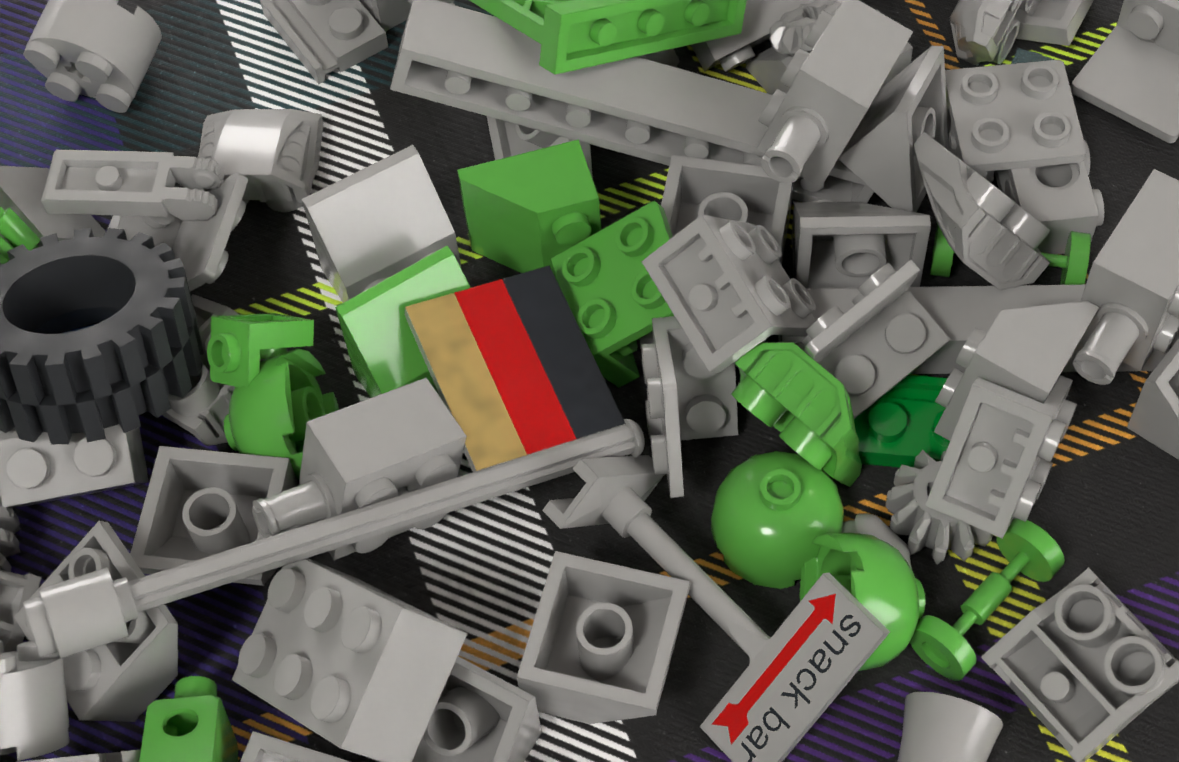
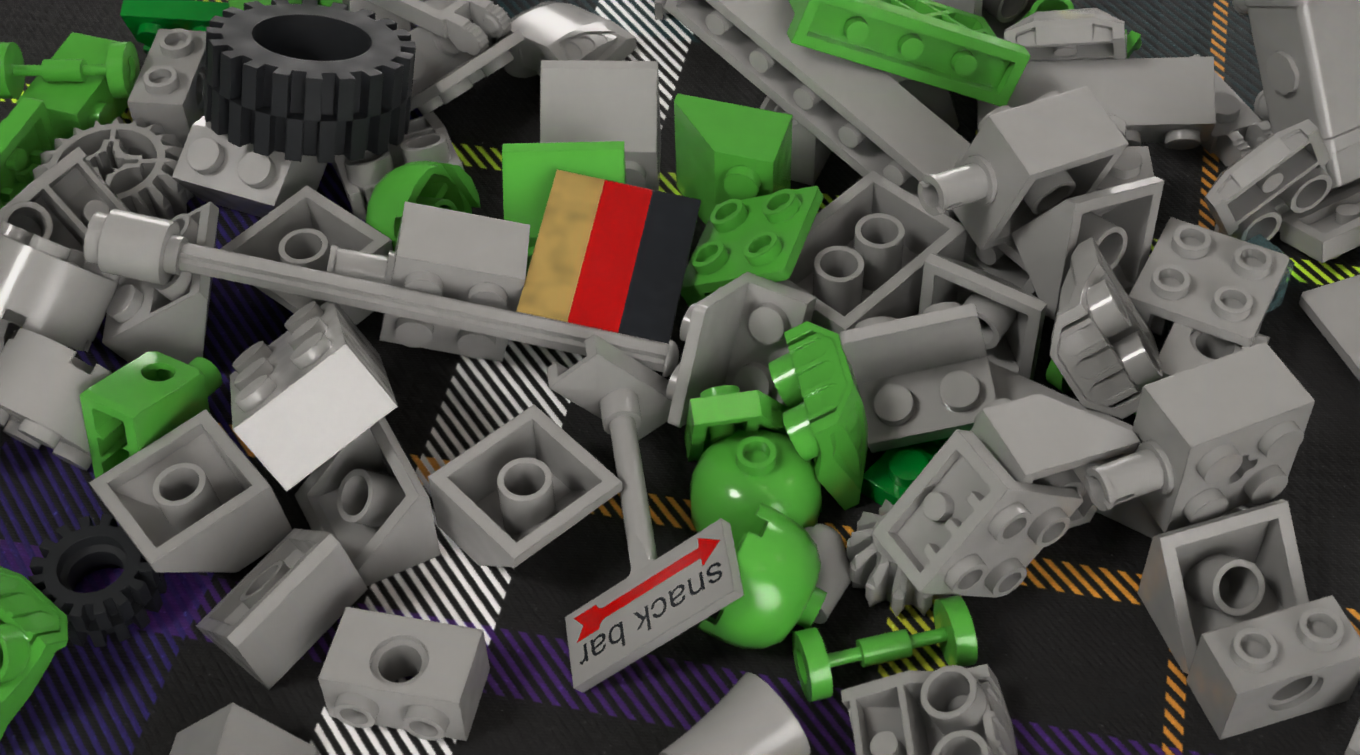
camera: 30 degrees right, 10 degrees down
(243, 340) = (441, 145): bright green bracket -> none
(724, 467) = (725, 410): none -> bright green wing
(728, 288) = (818, 264): light grey bracket -> none

